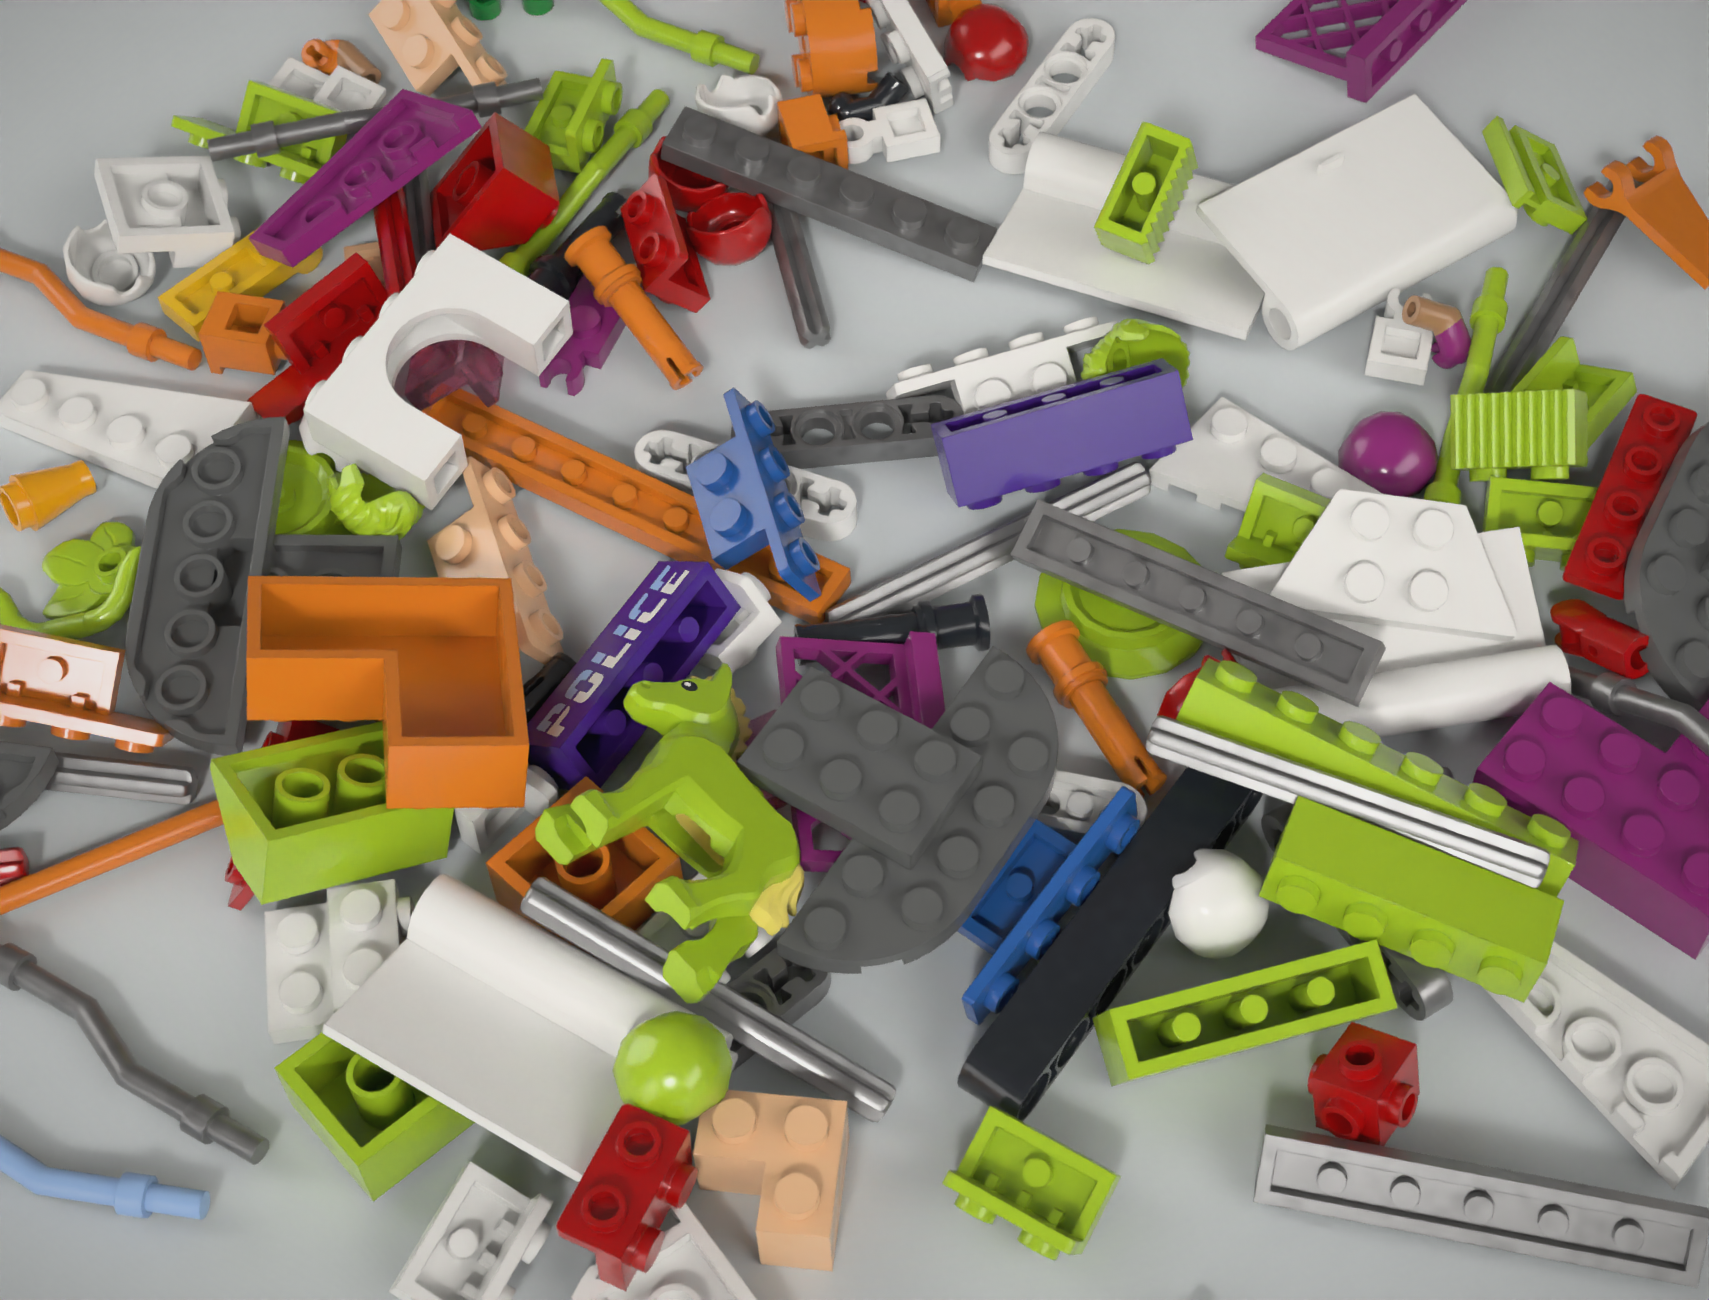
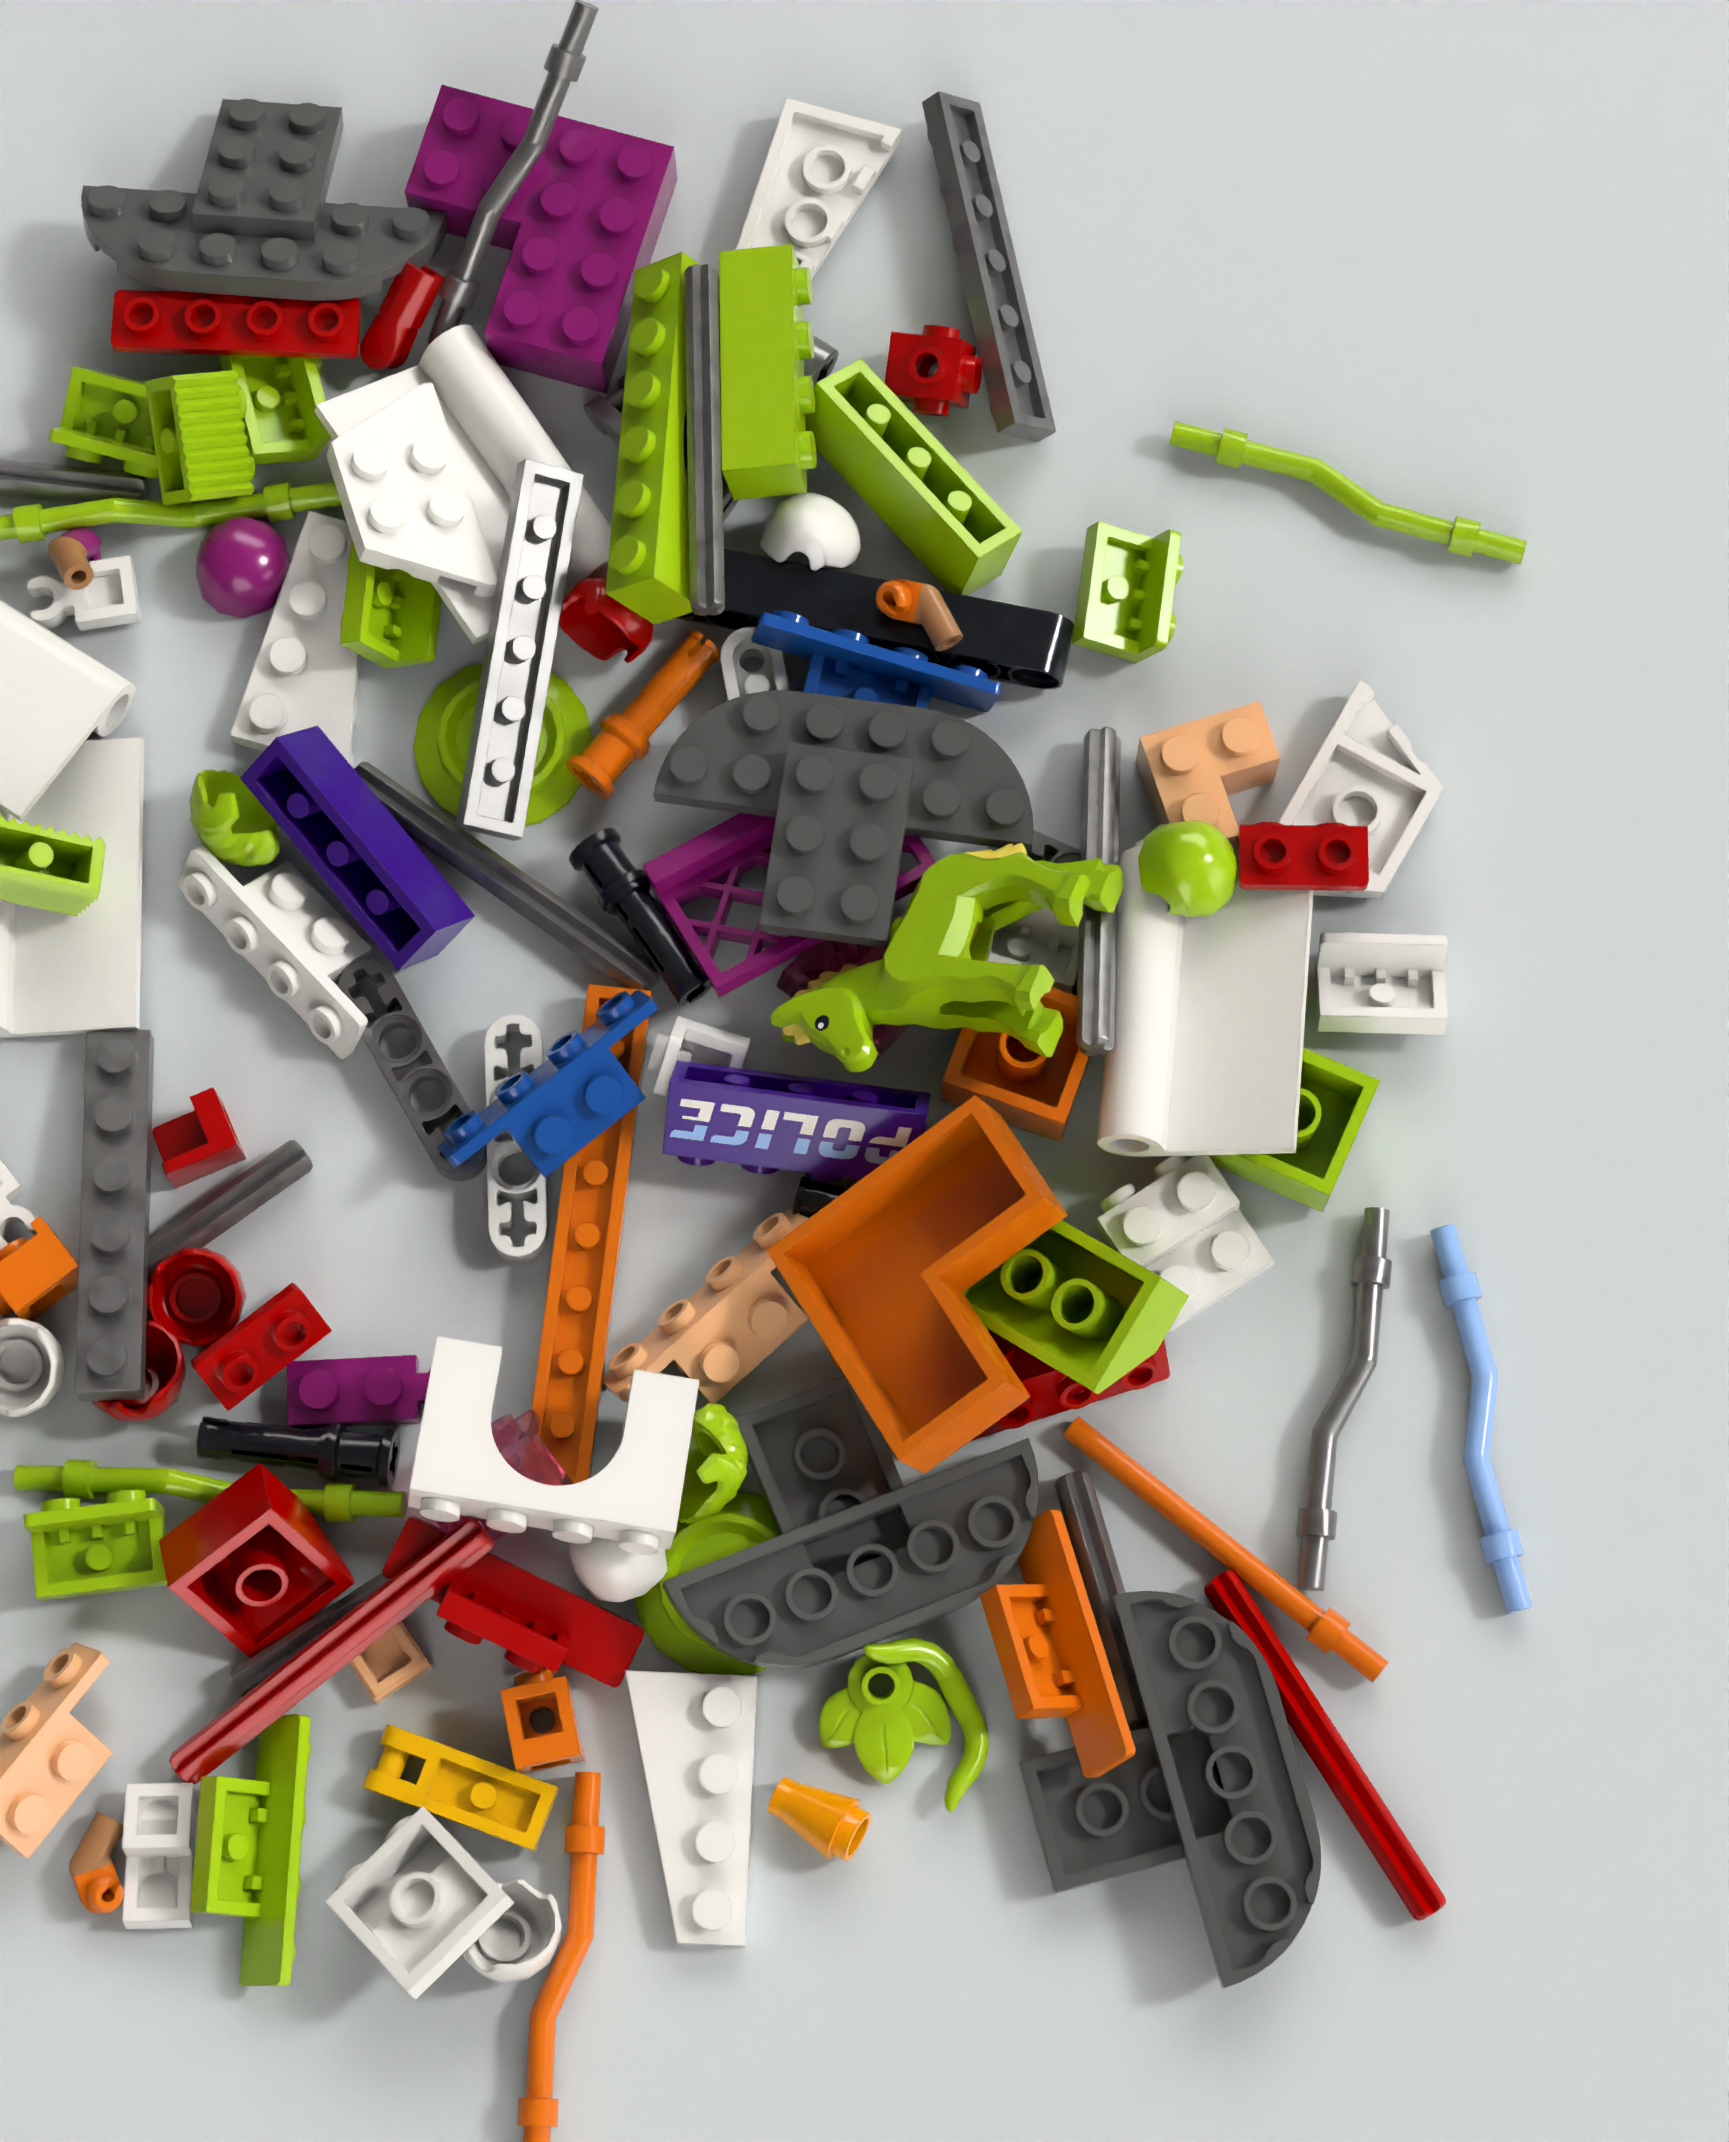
camera: 115 degrees left, 20 degrees up
(268, 138) = (286, 1834): flat silver bar -> none
(369, 168) = (295, 1683): magenta wing -> none
(619, 286) = (343, 1352): orange pin -> none
(863, 278) = (198, 1141): none -> red panel
(1091, 952) = (922, 606): none -> arm

